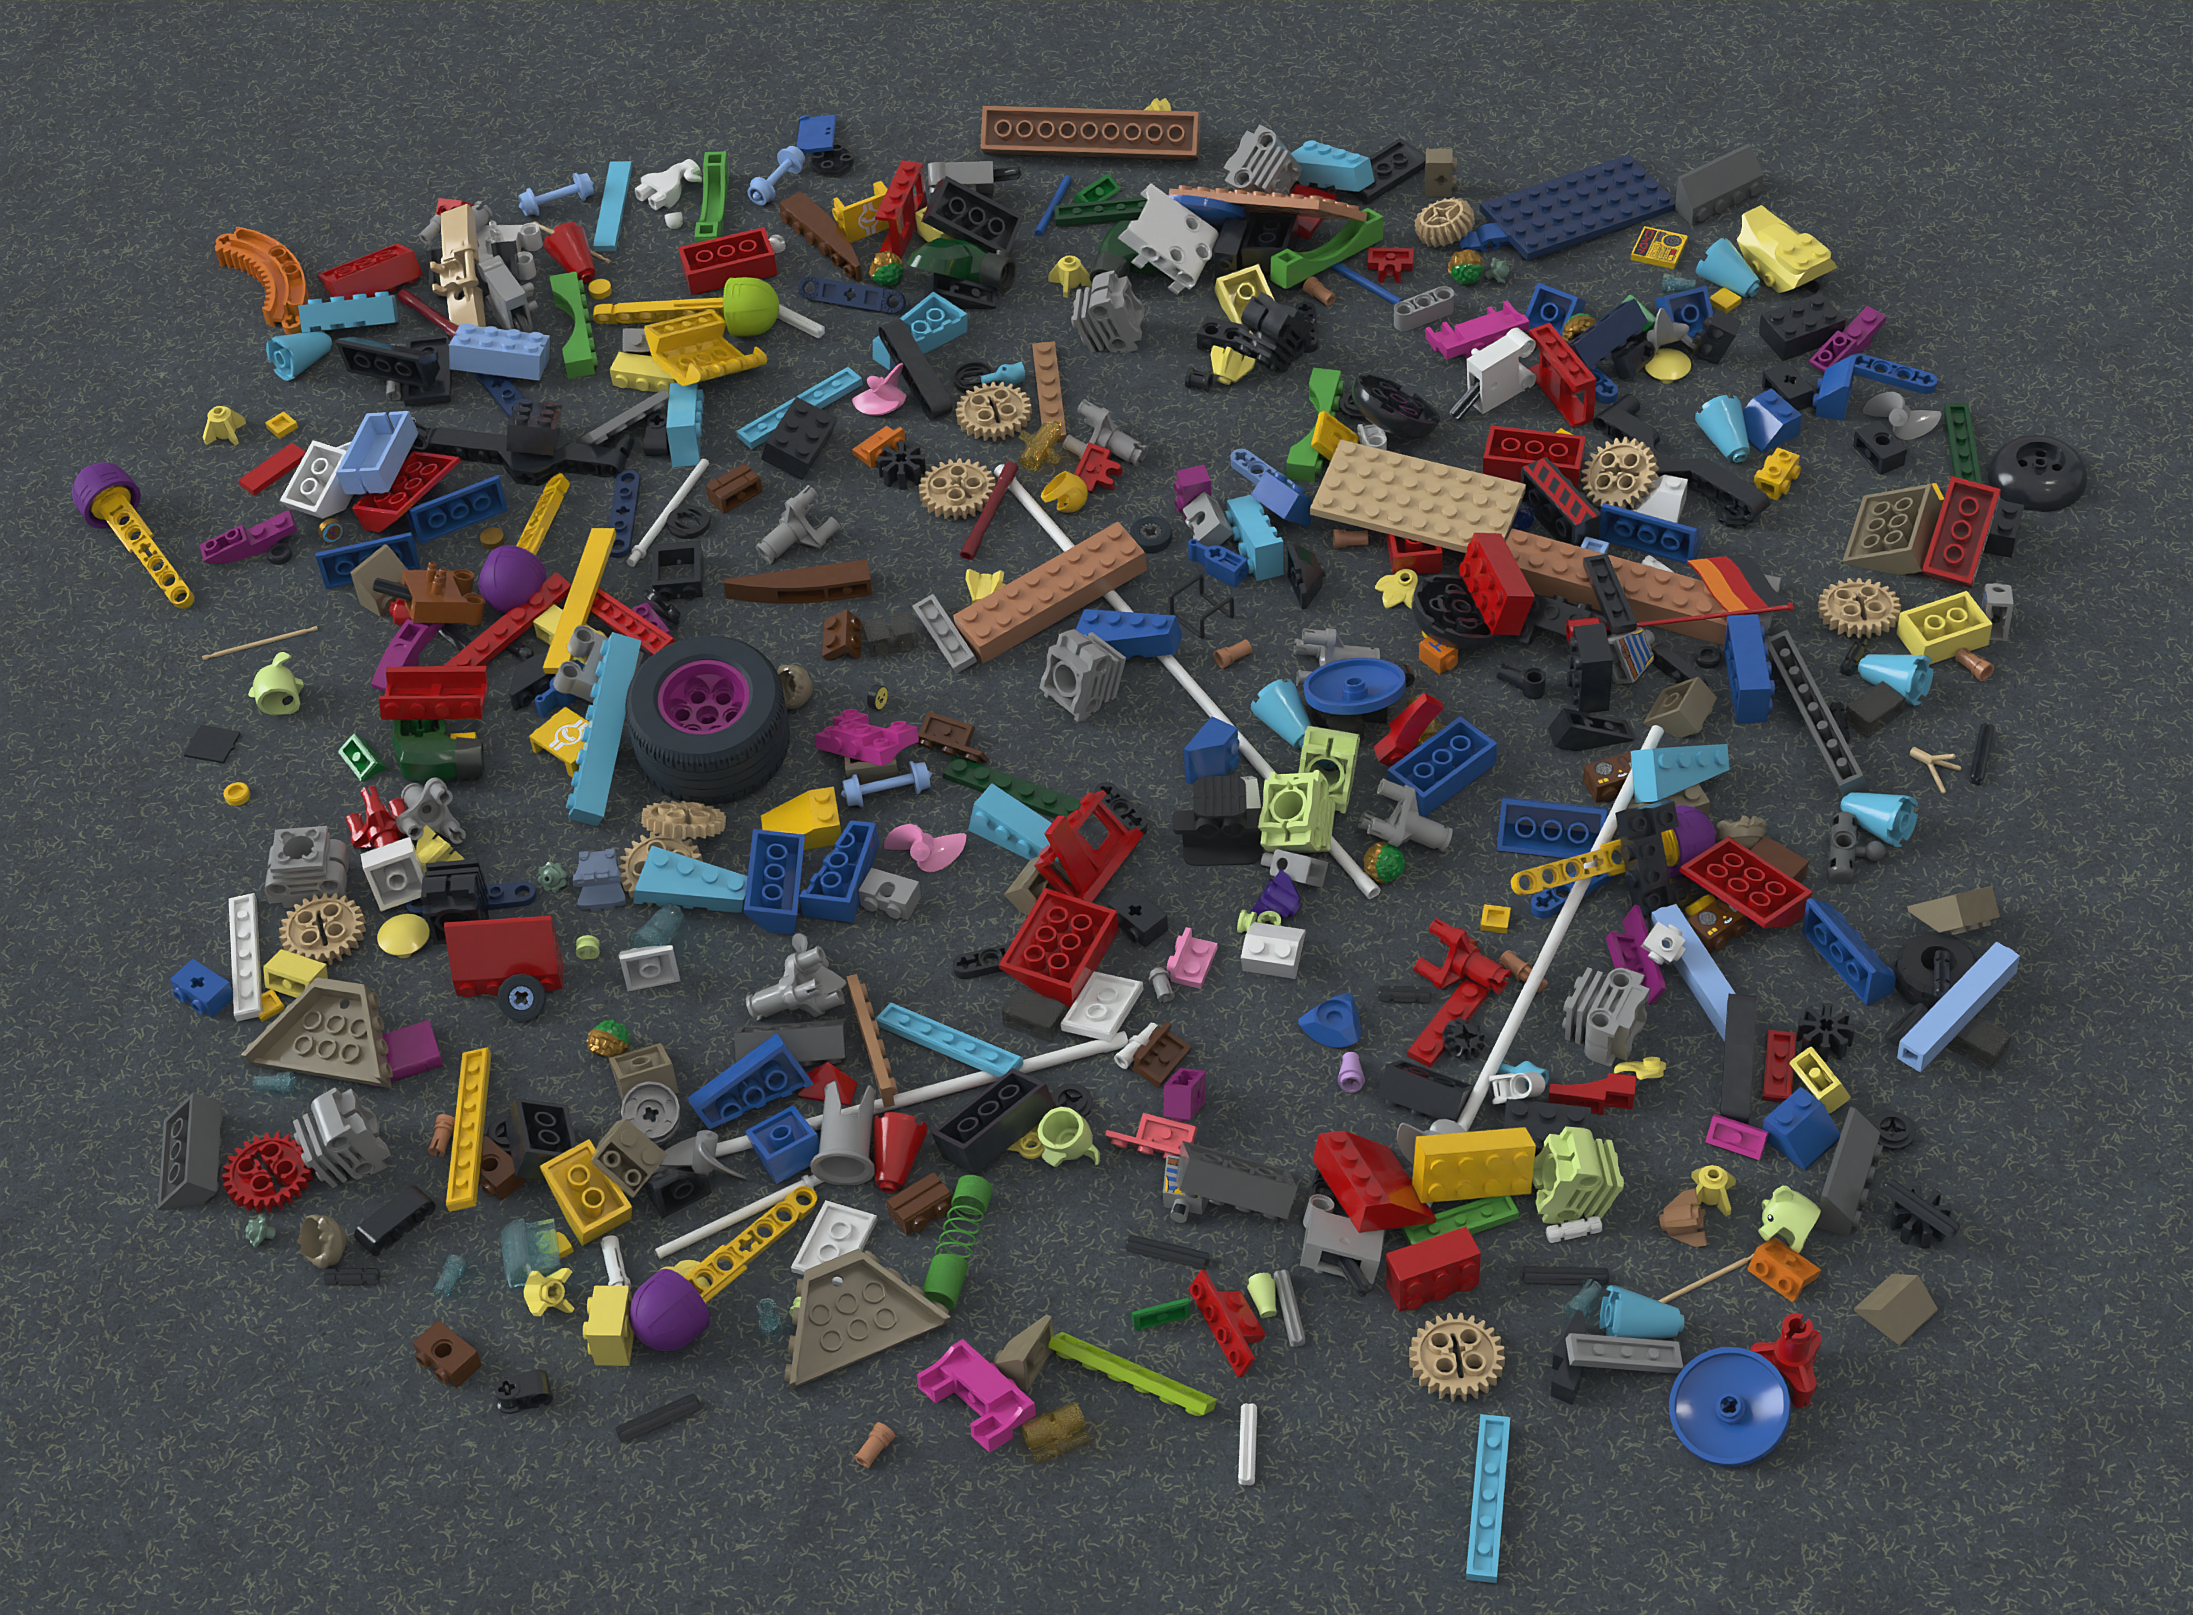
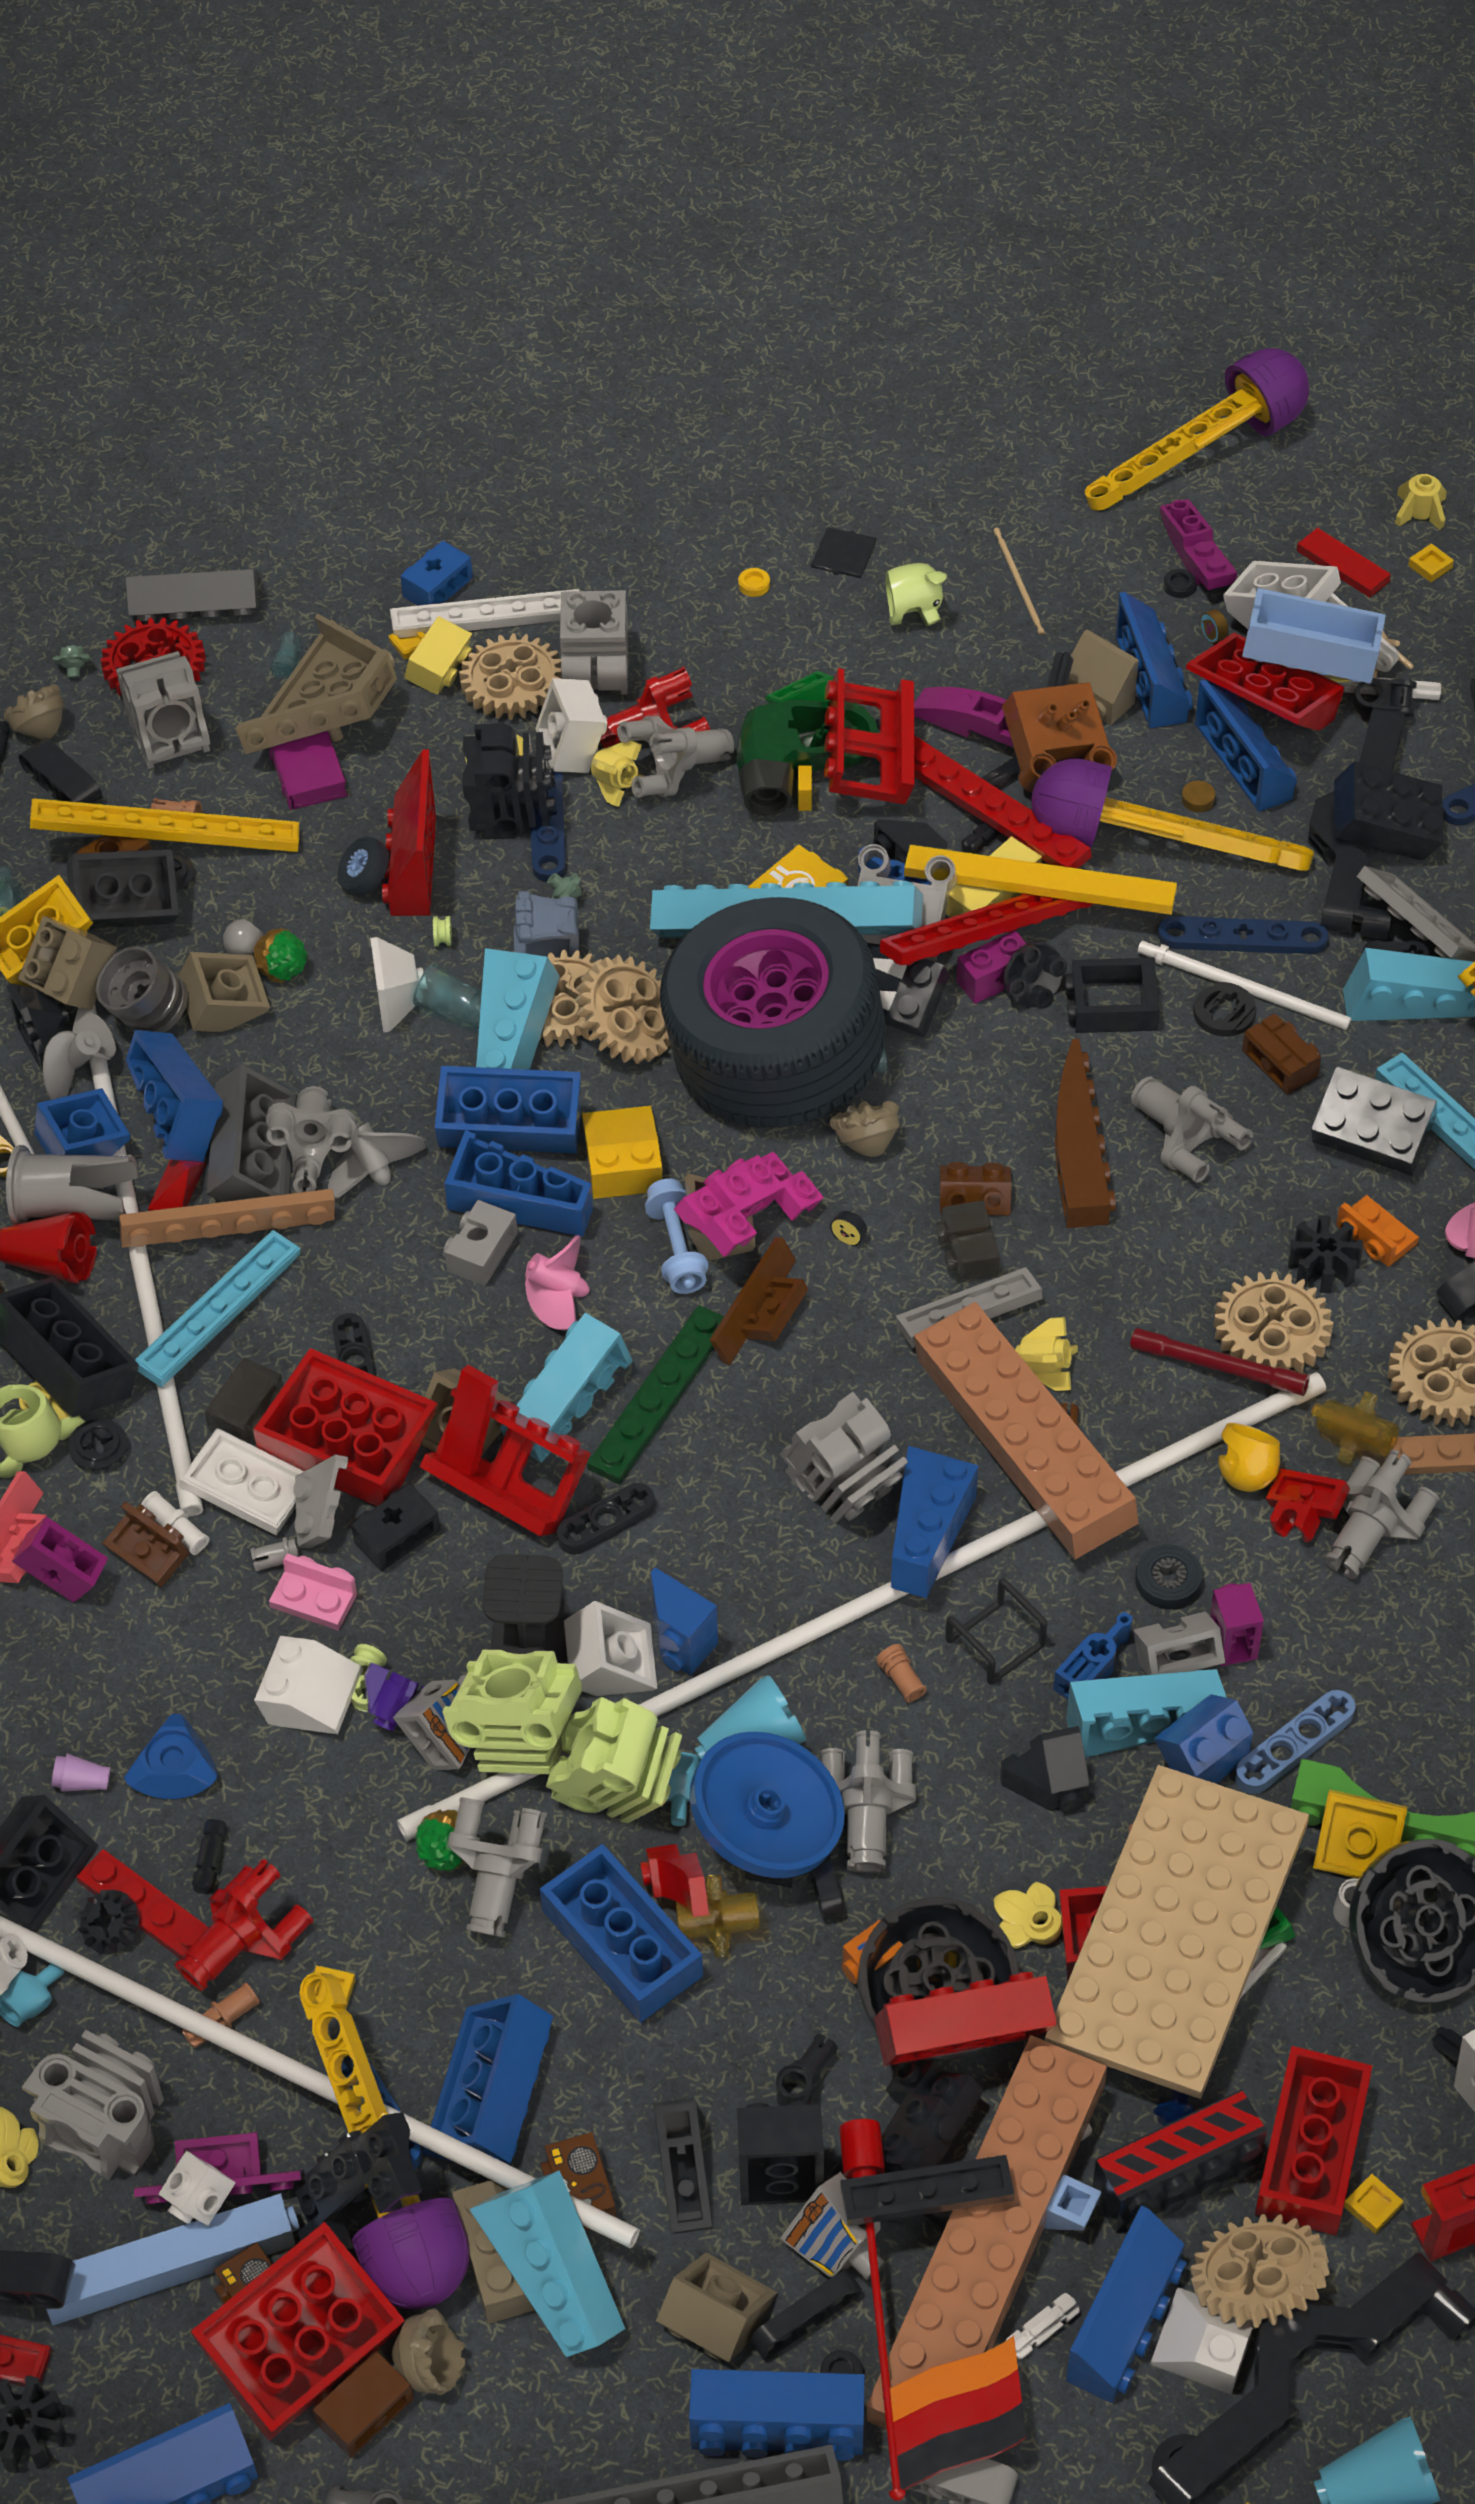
camera: 90 degrees right, 5 degrees up
(590, 1068) = (241, 937): none -> light grey piece
(1123, 954) = (317, 1501): none -> light grey wing

